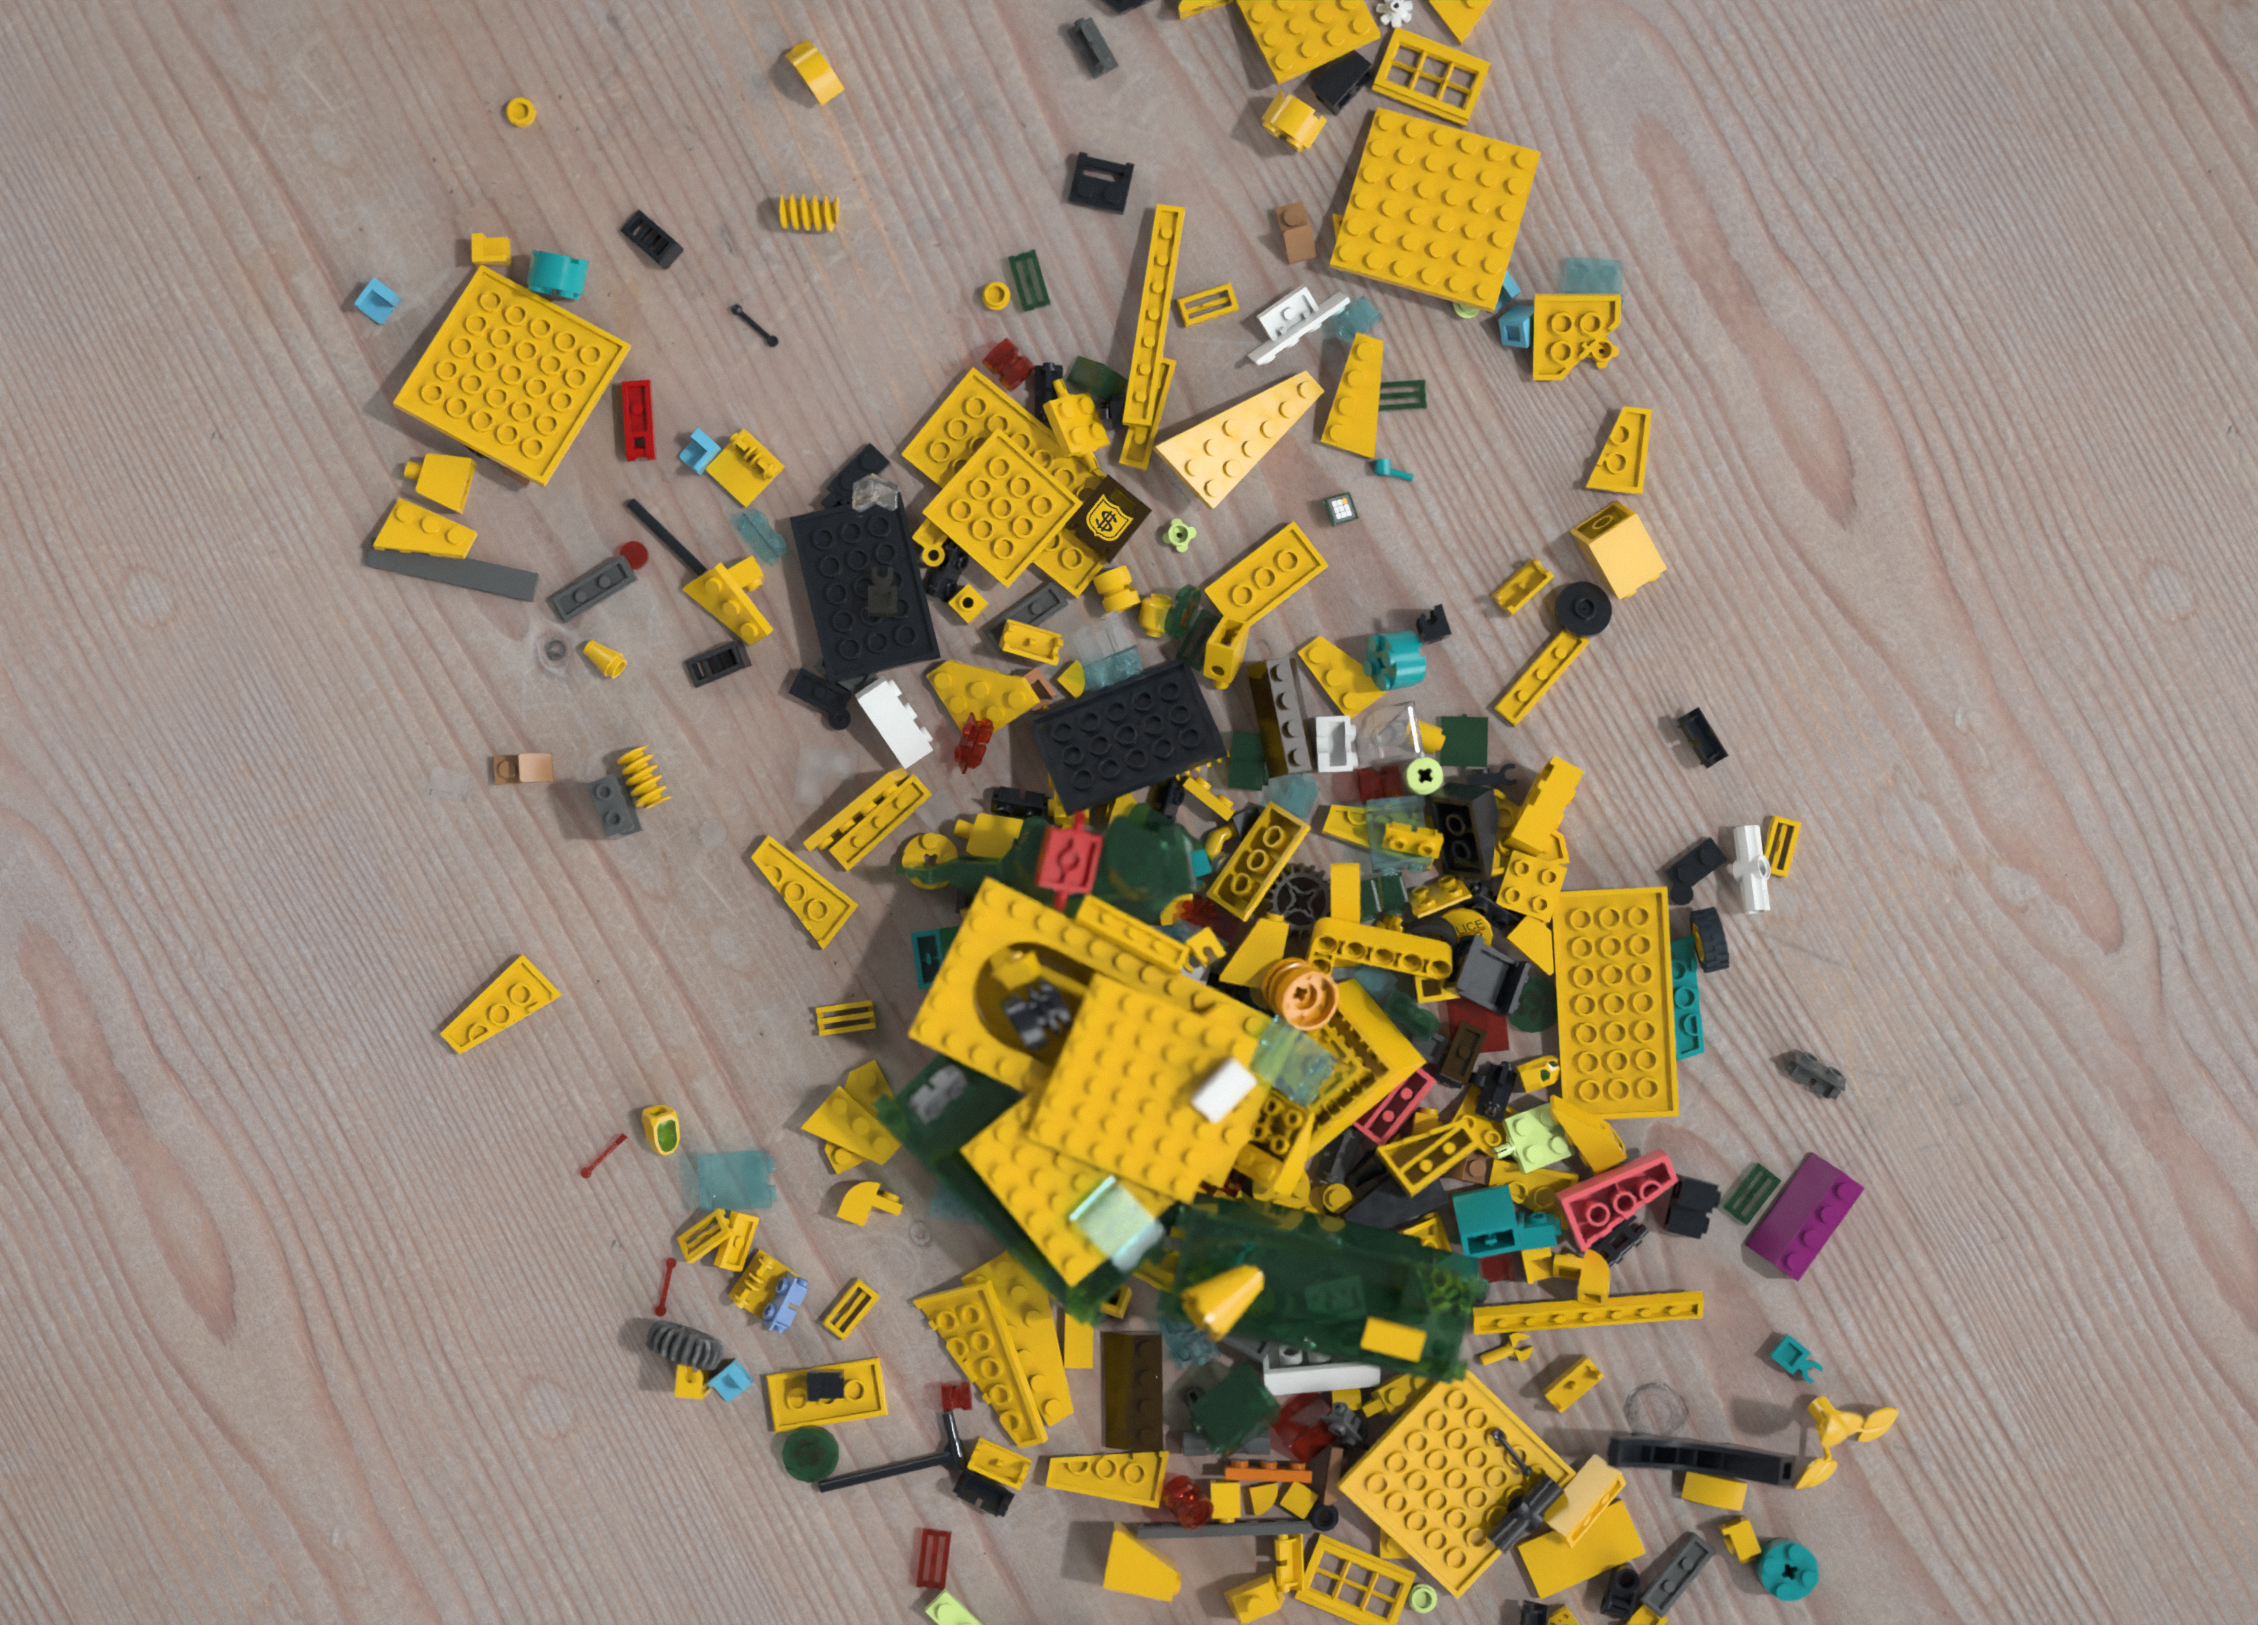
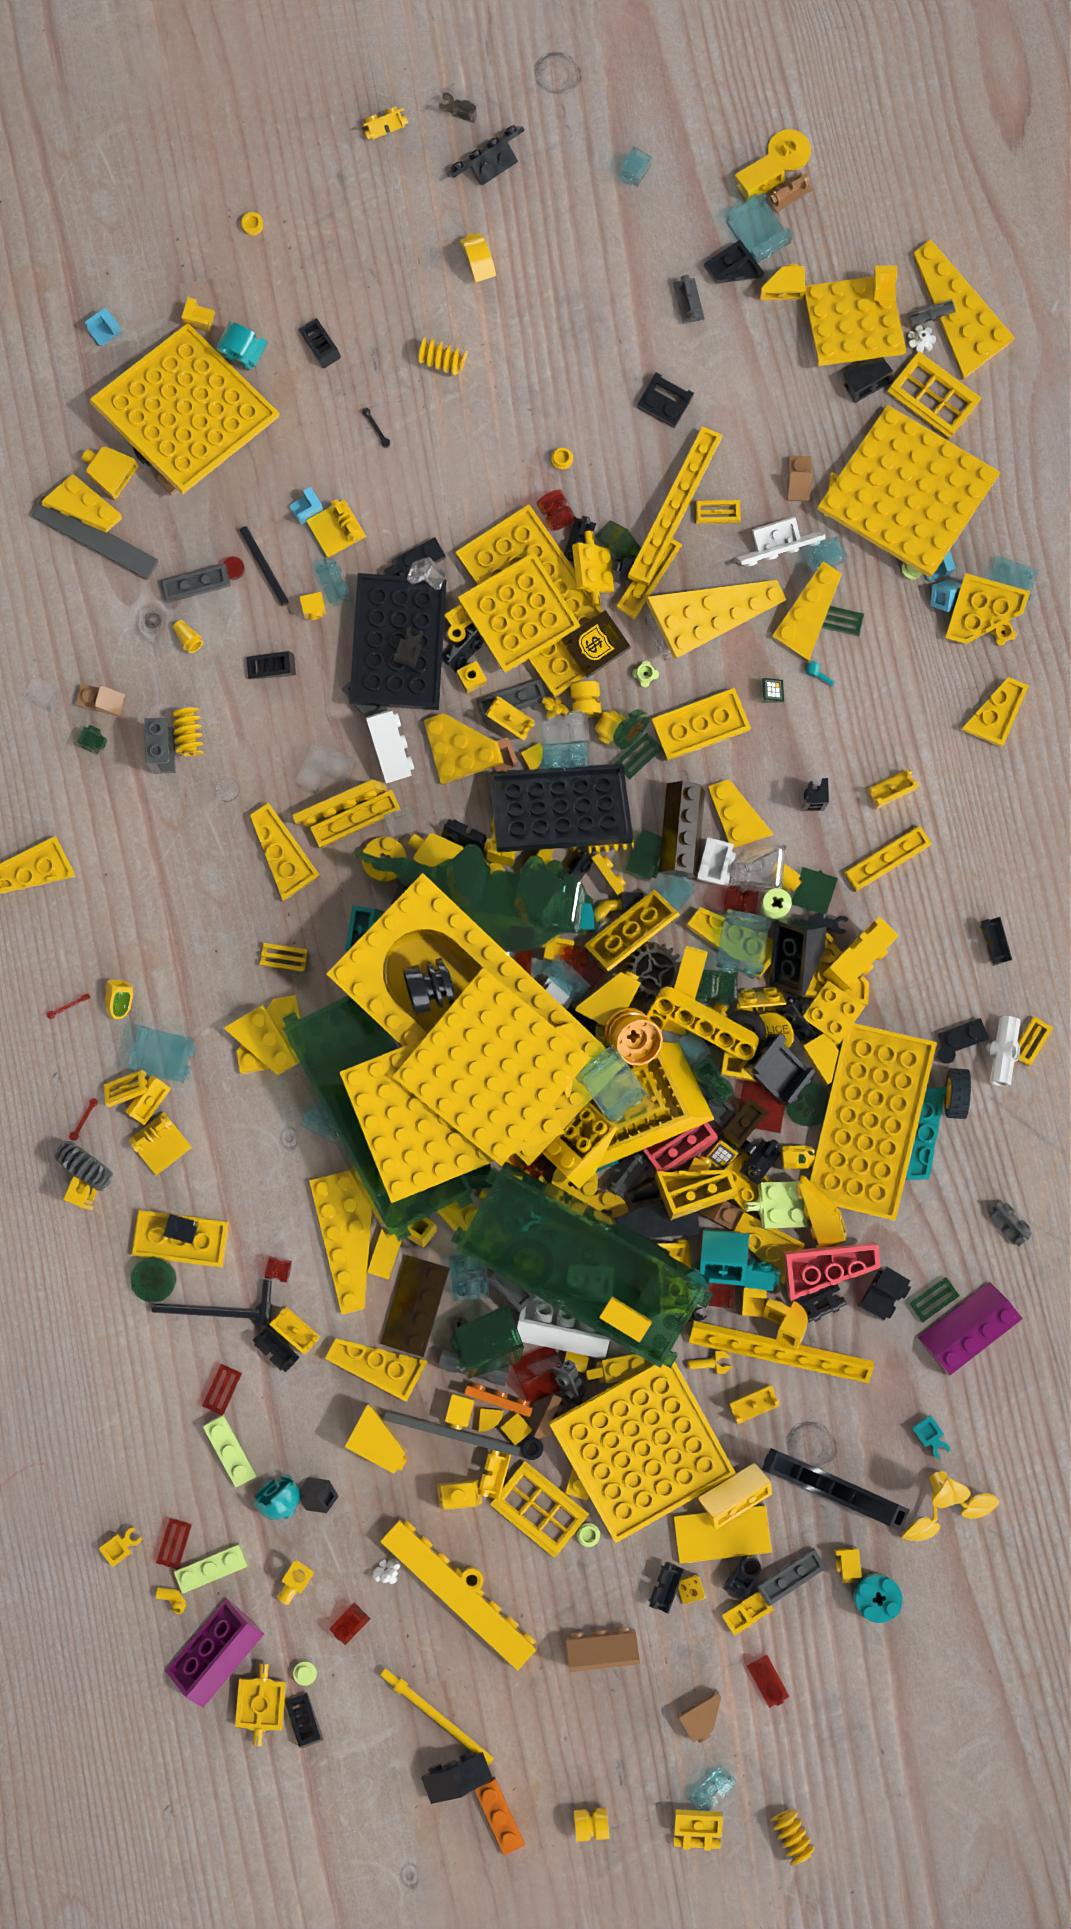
camera: 10 degrees right, 5 degrees down
(528, 822) = (91, 739): none -> clear green plate
(638, 419) = (268, 469): red plate -> none
(728, 602) = (291, 620): yellow wing -> none
(731, 1381) = (110, 1205): medium azure panel -> none
(778, 1314) = (174, 1150): medium blue hinge -> none
(823, 696) = (342, 712): black hinge -> none
(862, 1197) = (253, 1096): yellow brick -> none
(866, 1290) = (234, 1168): yellow tile -> none
(948, 1085) = (345, 1021): dark grey hinge -> none
(968, 751) = (438, 785): clear red hinge -> none
(983, 1348) = (309, 1234): yellow wing -> none
(1019, 969) = (426, 949): yellow plate -> none
(1023, 258) = (590, 437): clear green tile -> none
(1068, 860) = (488, 877): red plate -> none
(1081, 611) = (554, 707): none -> yellow plant
(1118, 1224) = (442, 1165): clear light blue panel -> none
(1131, 935) = (518, 950): yellow plate -> none
(1187, 1502) = (429, 1403): clear red wheel -> none
(1204, 948) = (568, 978): yellow hinge -> none
(1222, 1299) = (503, 1246): yellow cone -> none
(1223, 1090) = (553, 1085): white panel -> none
(1225, 661) = (654, 768): yellow torso -> none
(1293, 121) = (822, 395): yellow brick -> none
(1337, 1198) = (615, 1204): yellow plate -> none
(1394, 660) = (780, 812): teal brick -> none
(1422, 842) = (749, 949): yellow hinge -> none
(1446, 1098) = (721, 1155): none -> slope
(1498, 1434) = (684, 1422): black hinge -> none
(1524, 1513) = (687, 1490): black piece -> none
(1582, 622) = (933, 819): black piece -> none
(1619, 549) = (974, 782): yellow slope -> none
(1715, 1490) = (839, 1519): yellow slope -> none

